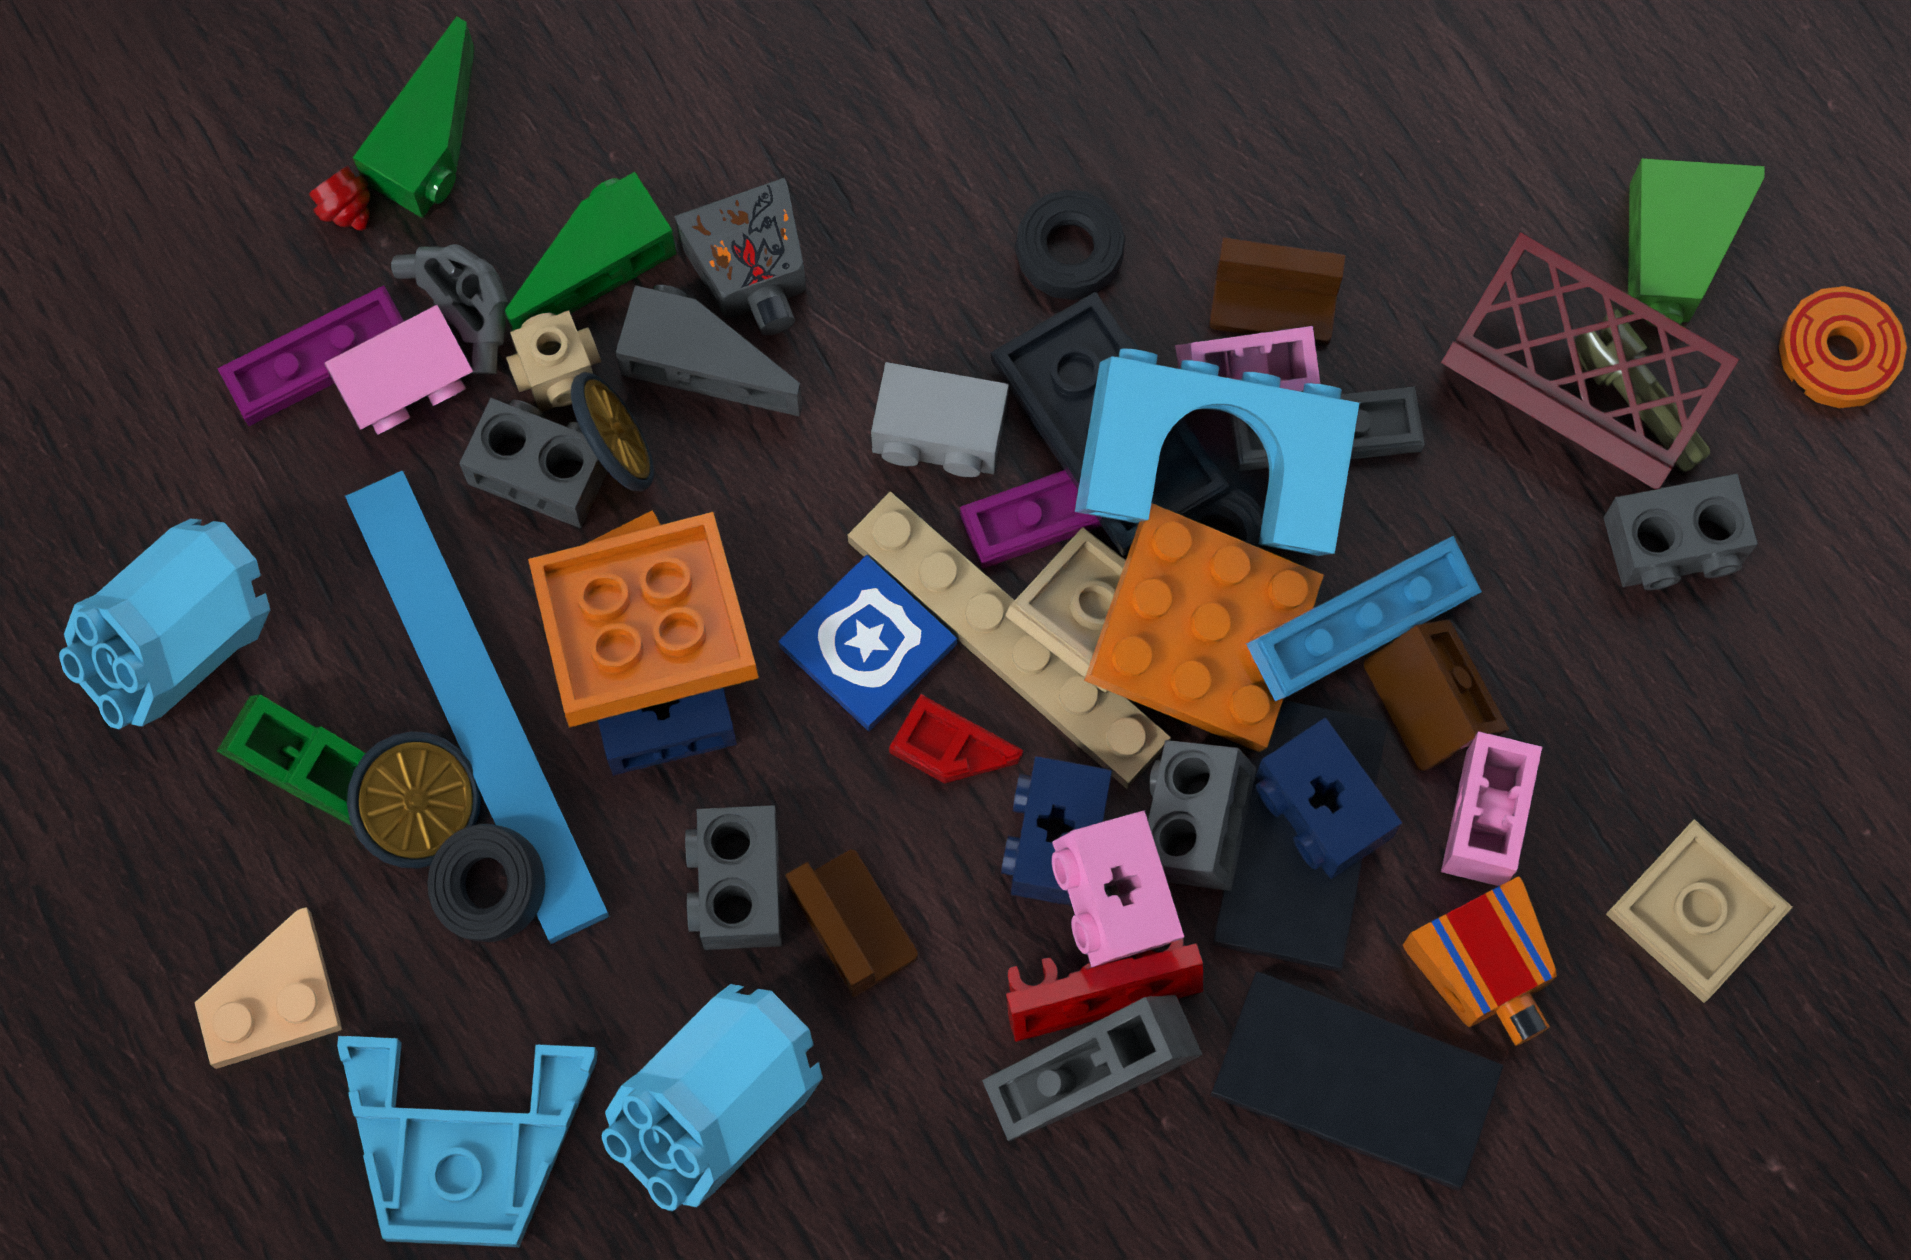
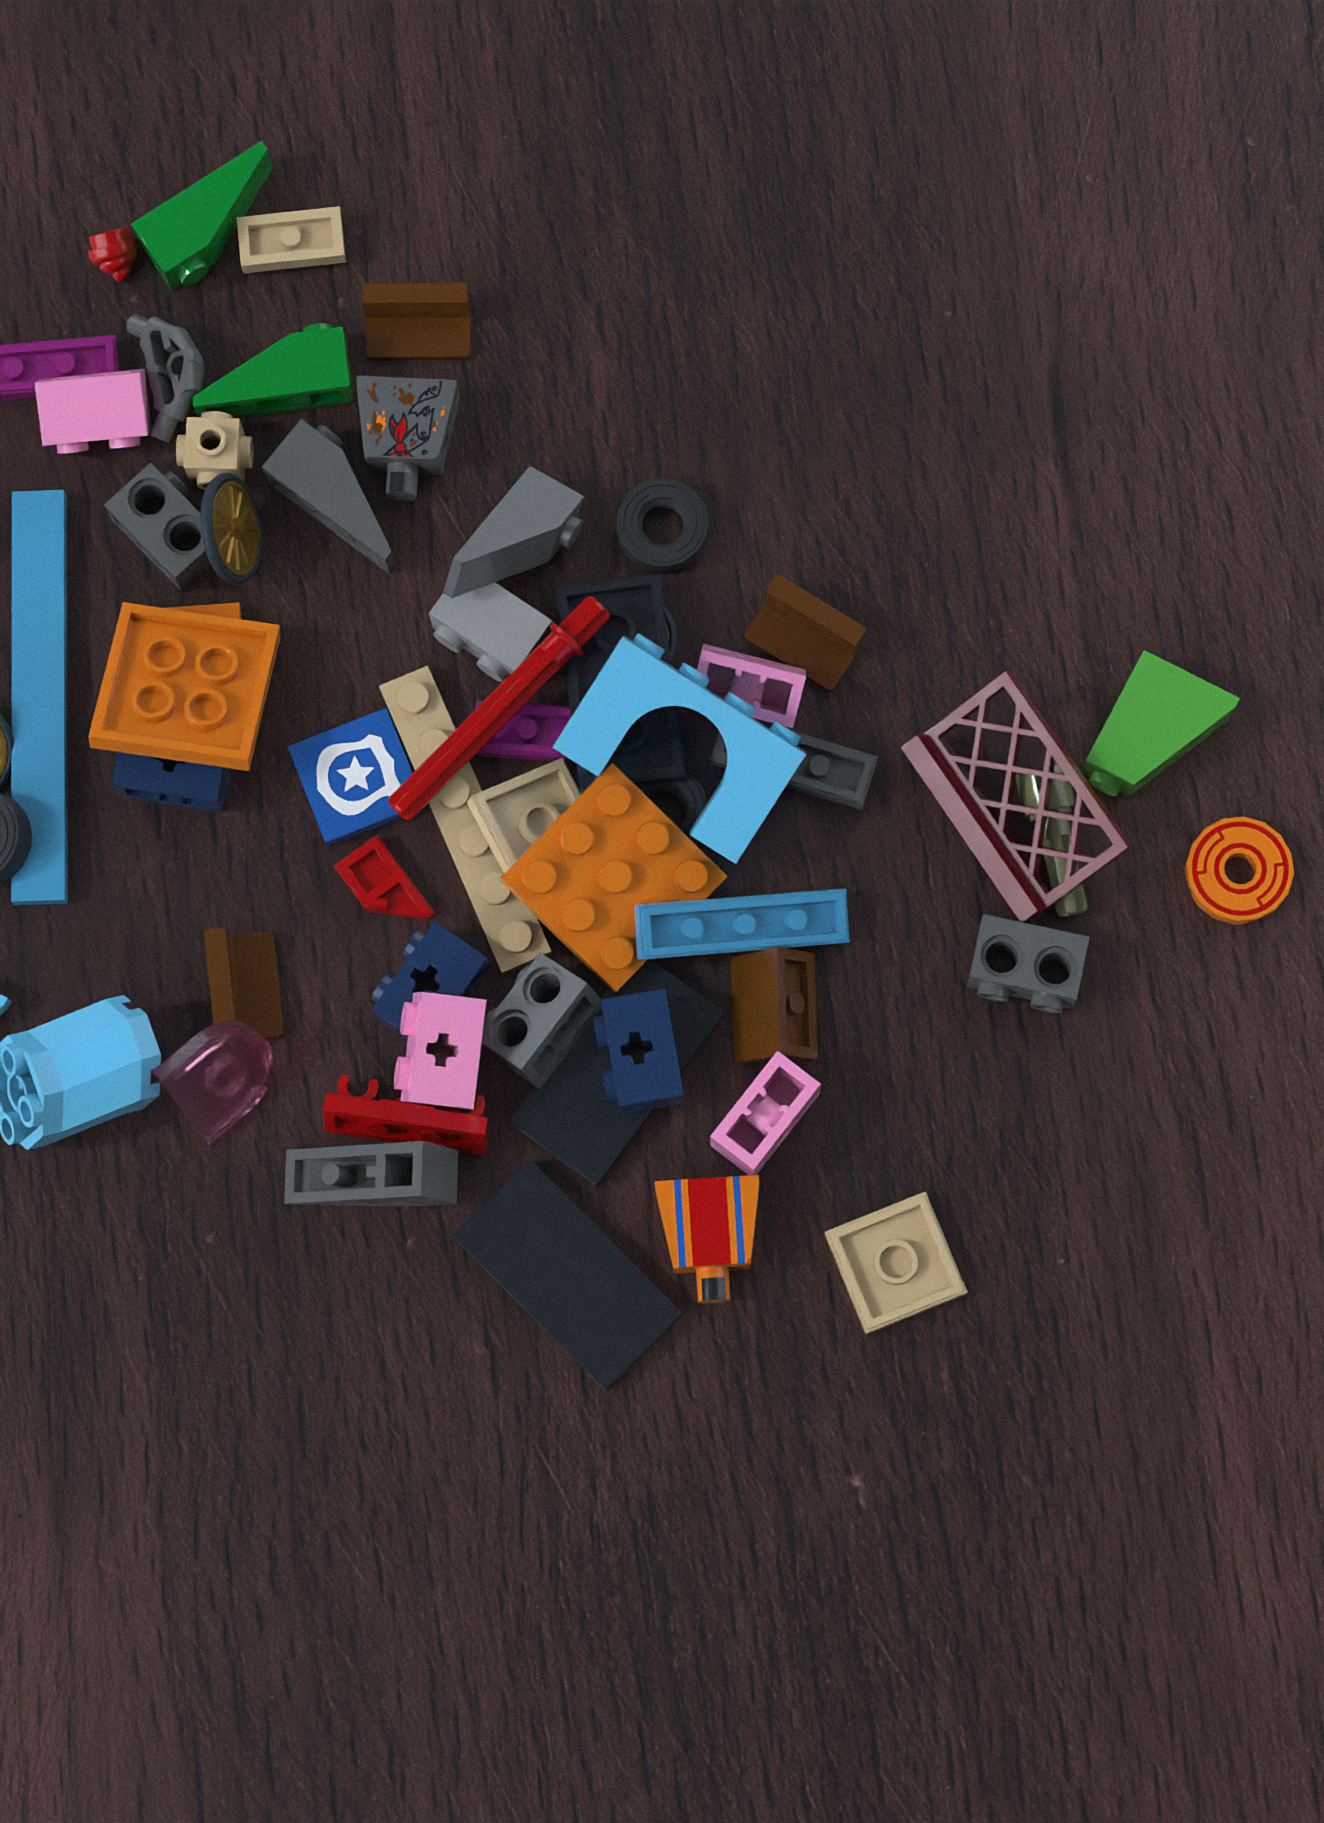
camera: 30 degrees right, 5 degrees up
(531, 110) = (291, 239): none -> tan plate
(706, 139) = (417, 321): none -> reddish brown panel
(749, 876) = (183, 918): dark grey brick -> none
(874, 1030) = (218, 1076): none -> clear pink tile
(929, 307) = (518, 534): none -> dark grey slope
(995, 499) = (499, 707): none -> red axle

